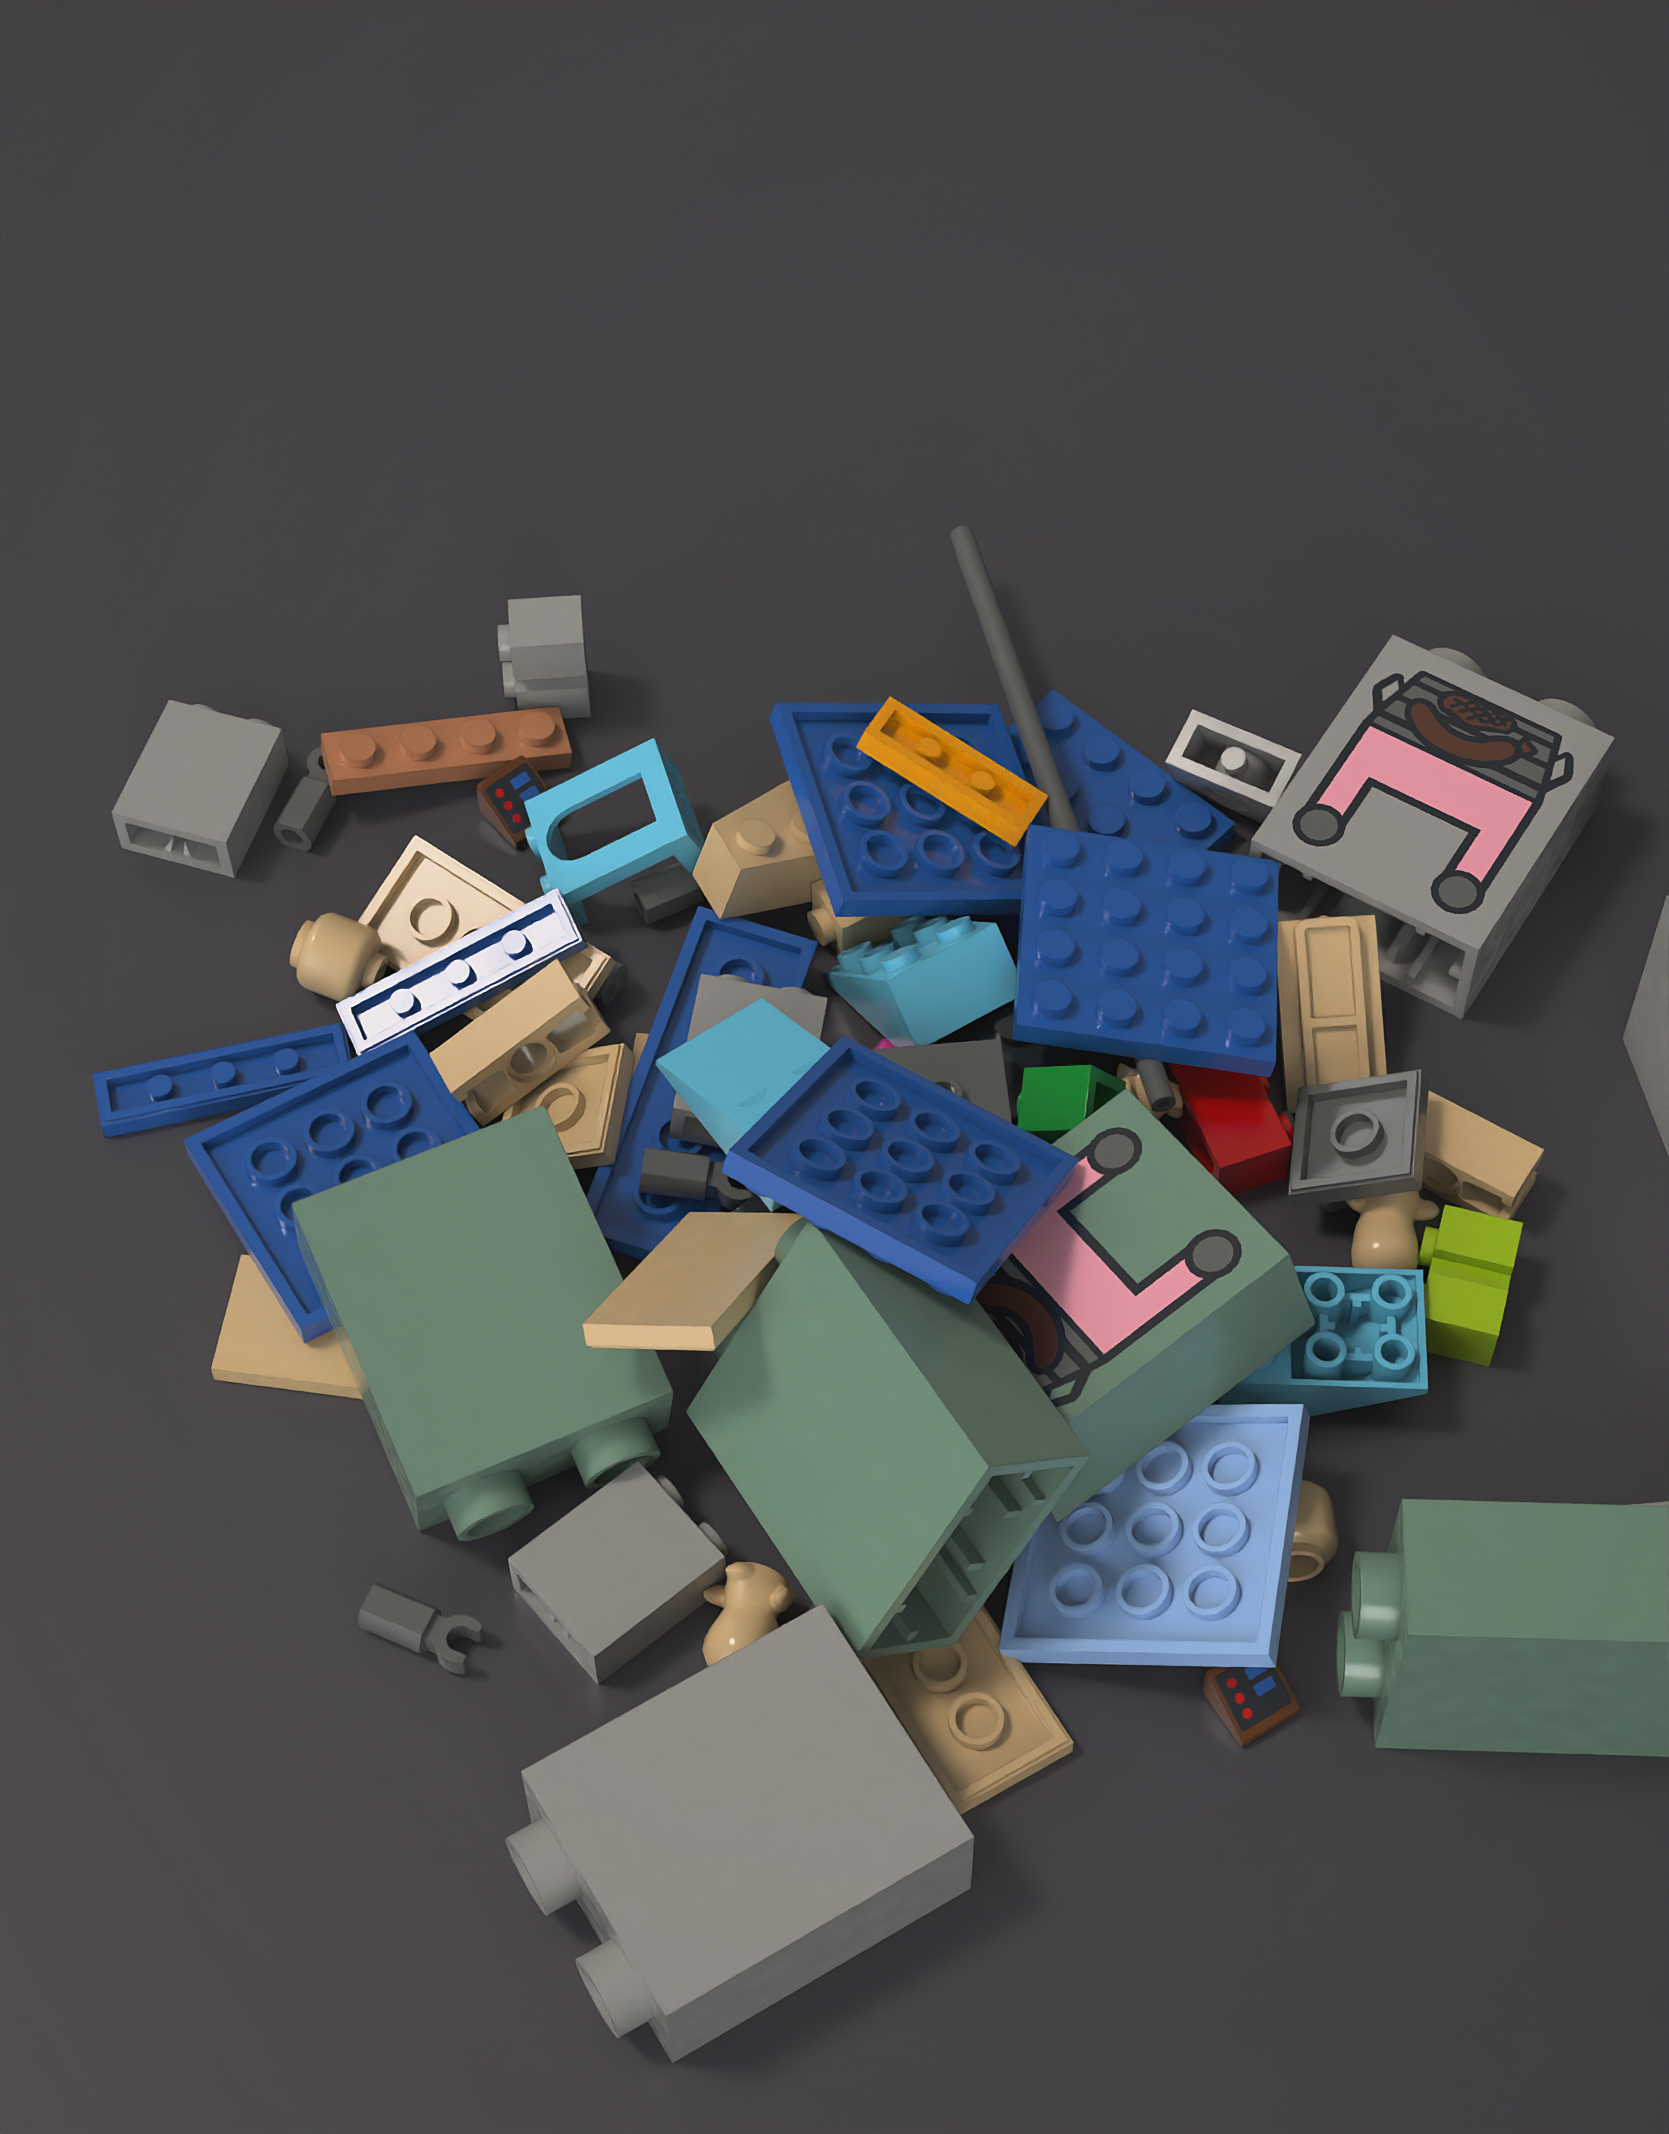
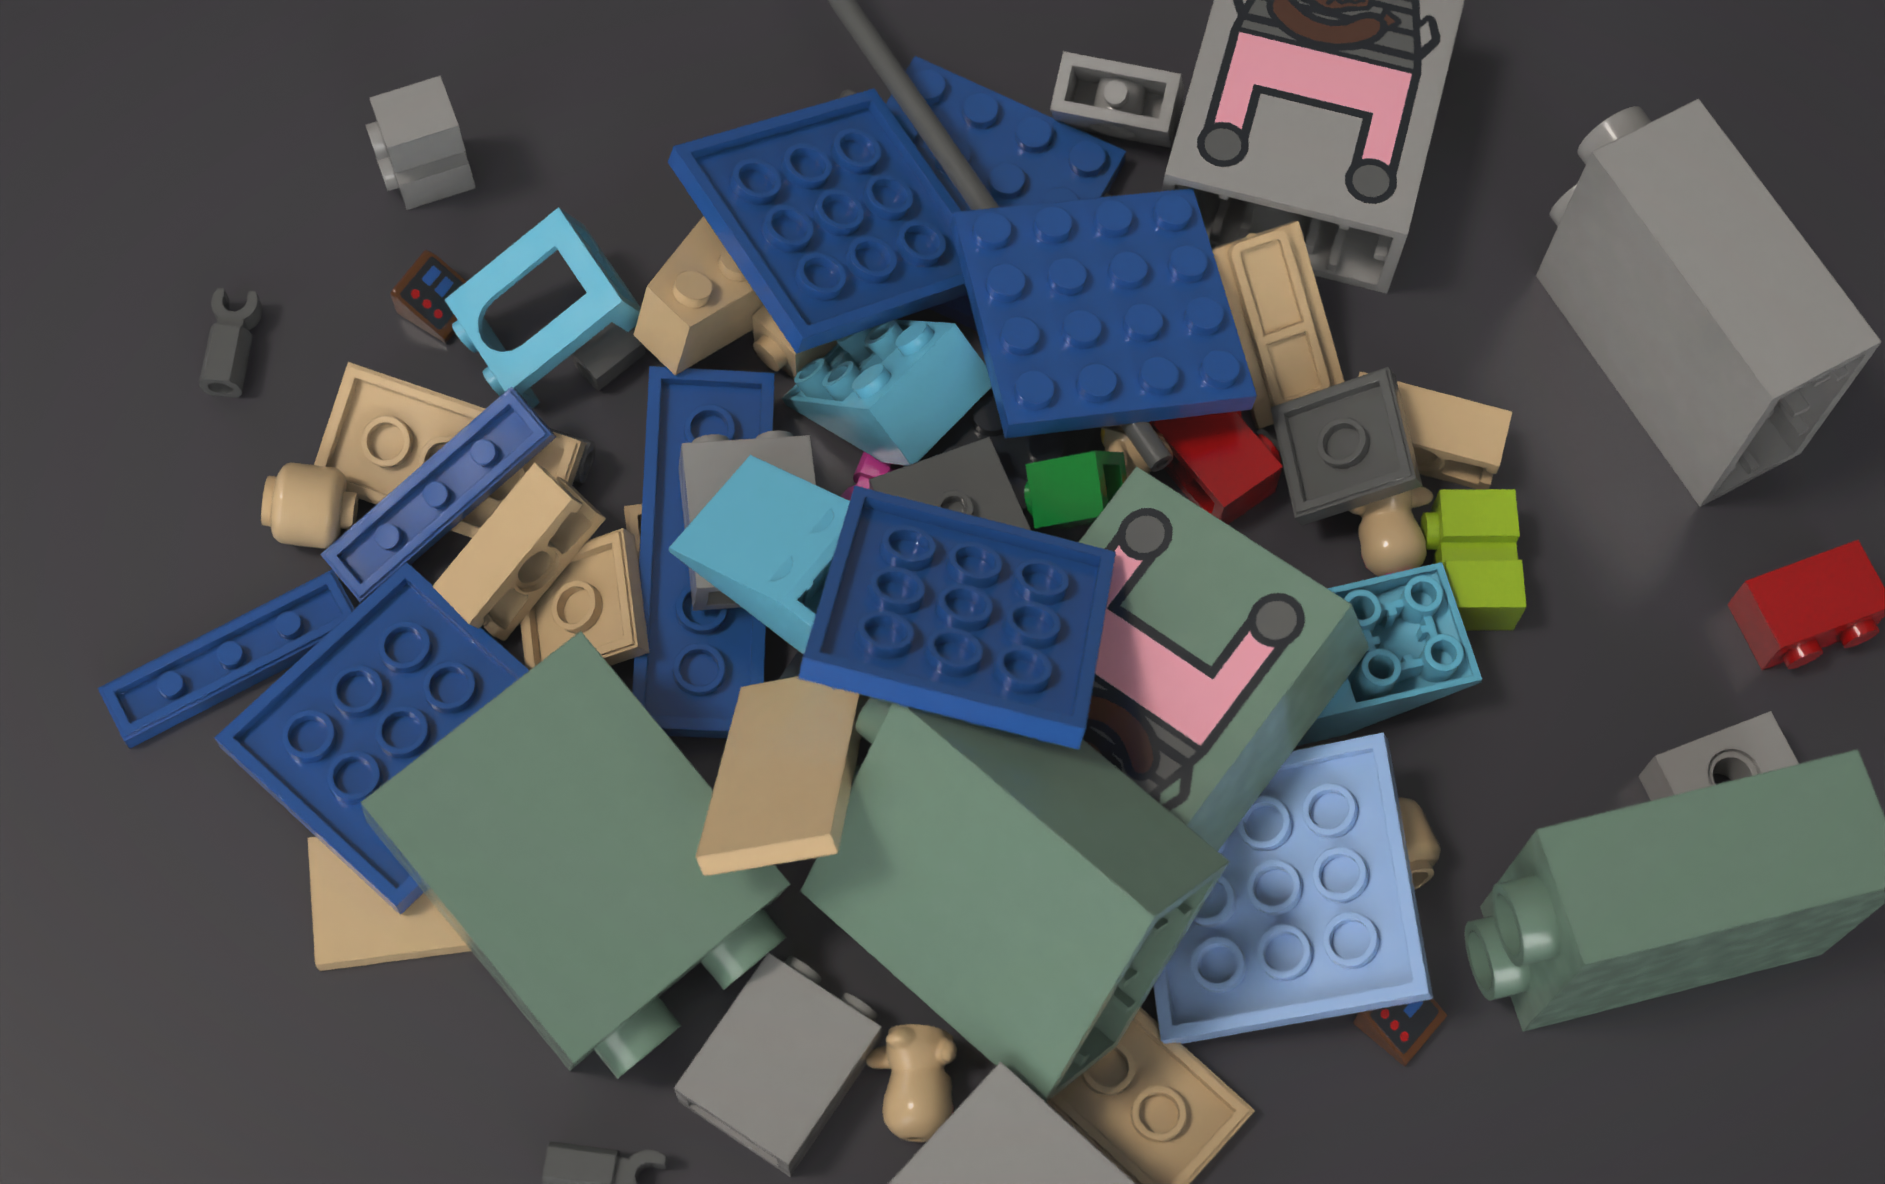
camera: 20 degrees left, 10 degrees up
(201, 788) = (112, 359): light grey brick -> none
(443, 750) = (344, 262): nougat plate -> none
(688, 1177) = (728, 648): dark grey bar -> none
(952, 771) = (860, 174): light orange plate -> none

